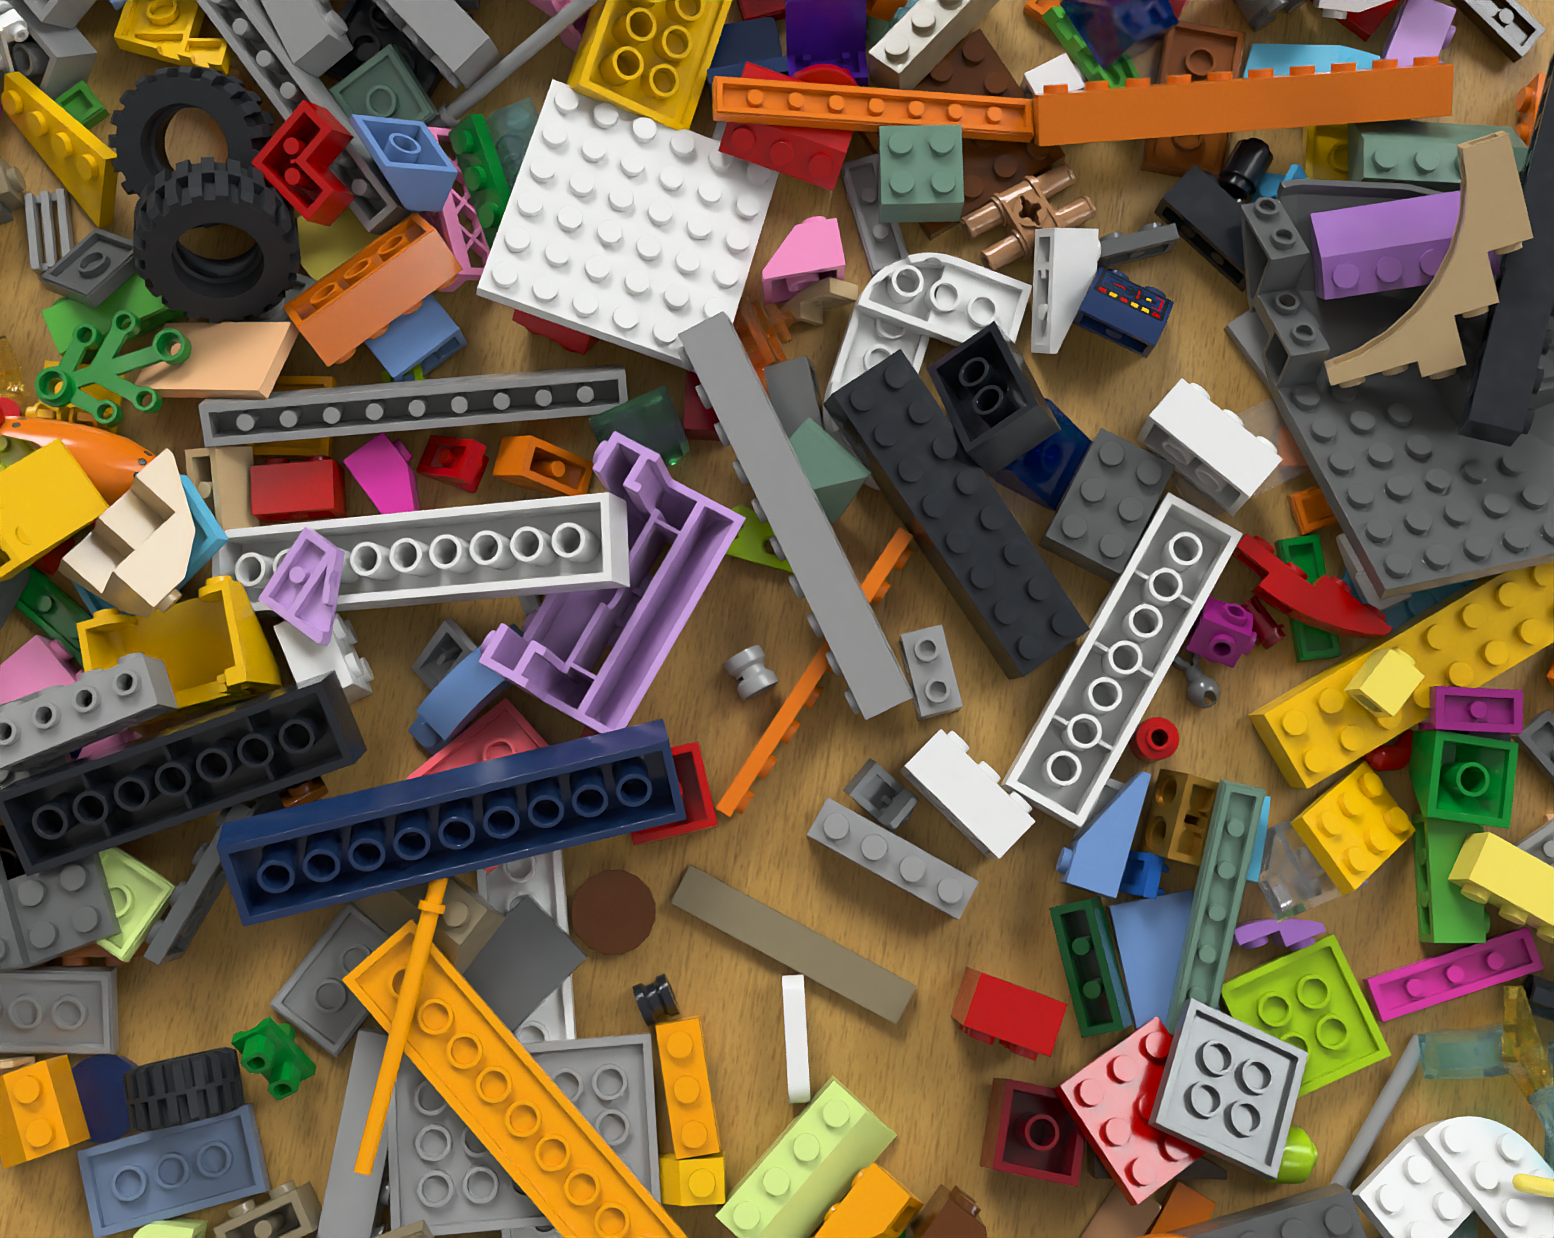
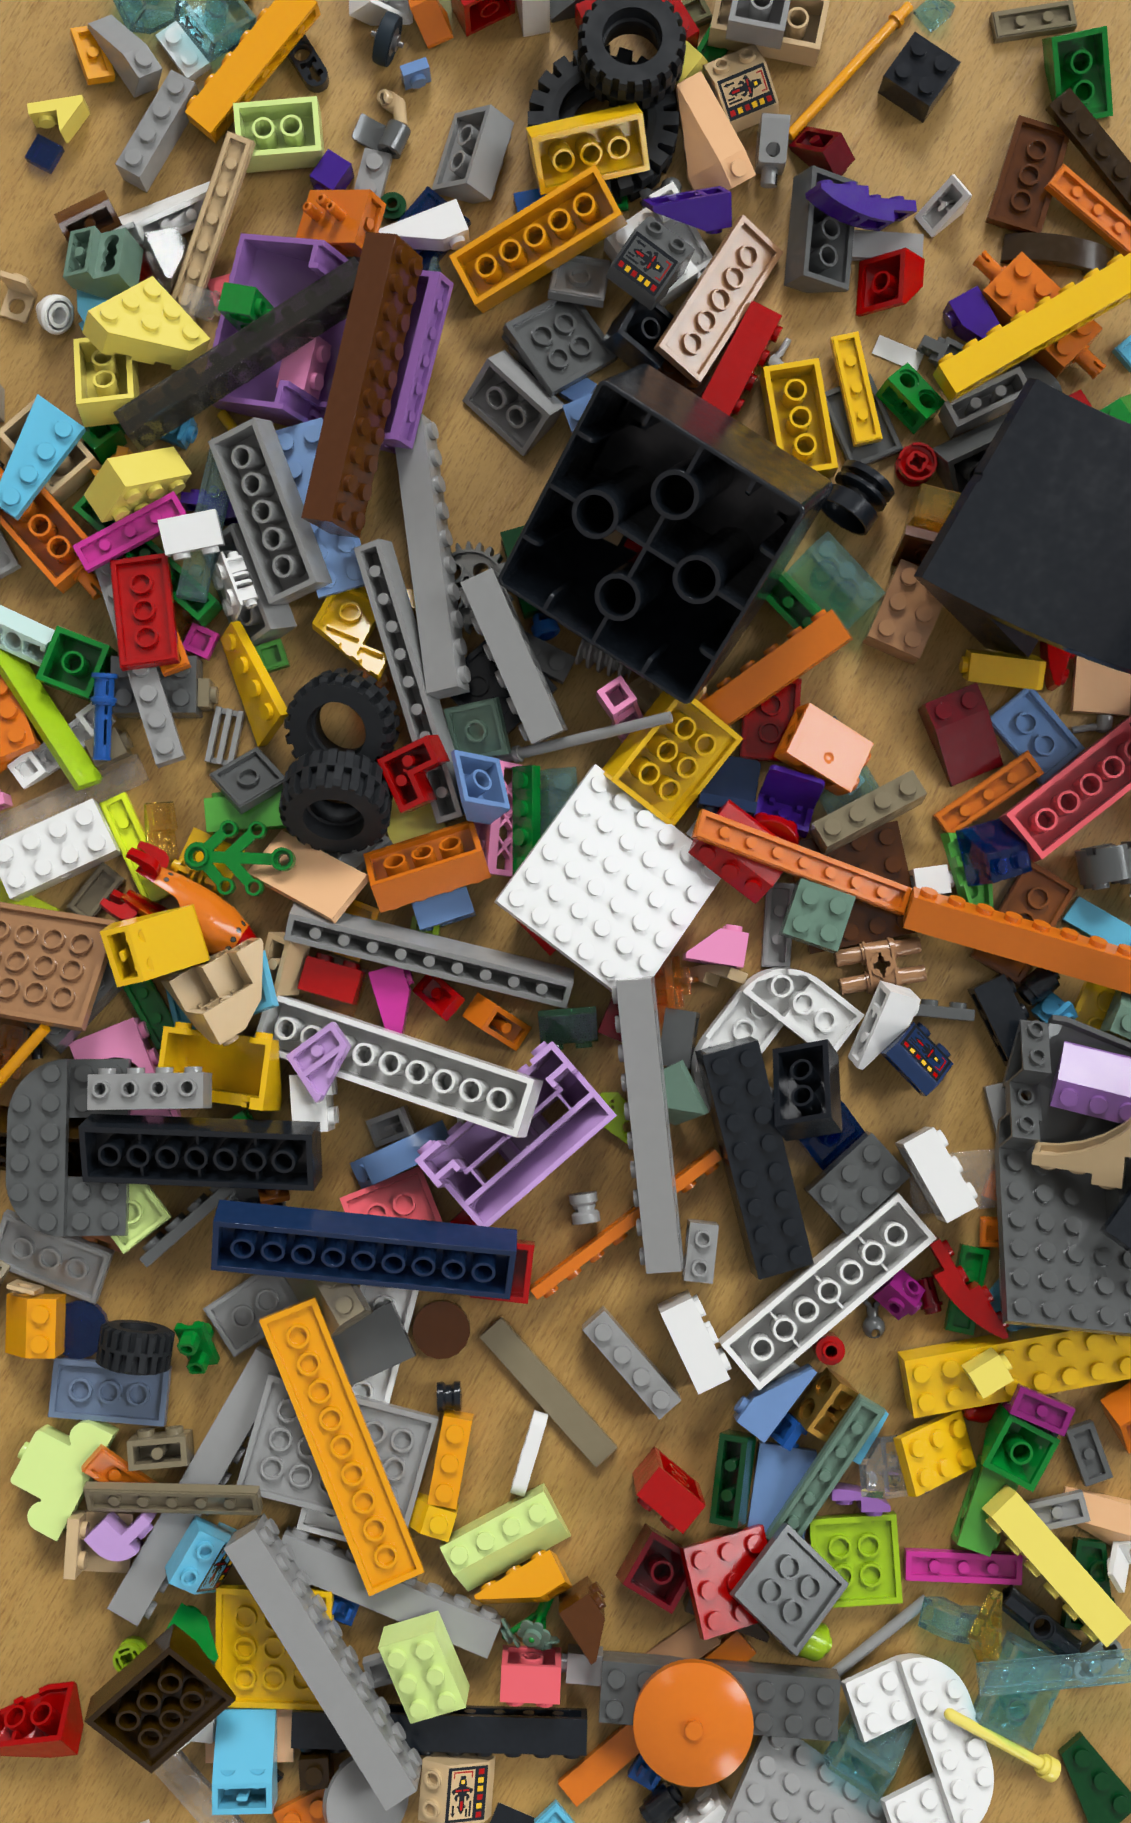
camera: 15 degrees right, 5 degrees up
(430, 911) = (329, 1297): light orange bar -> none
(881, 795) = (640, 1319): dark grey bracket -> none

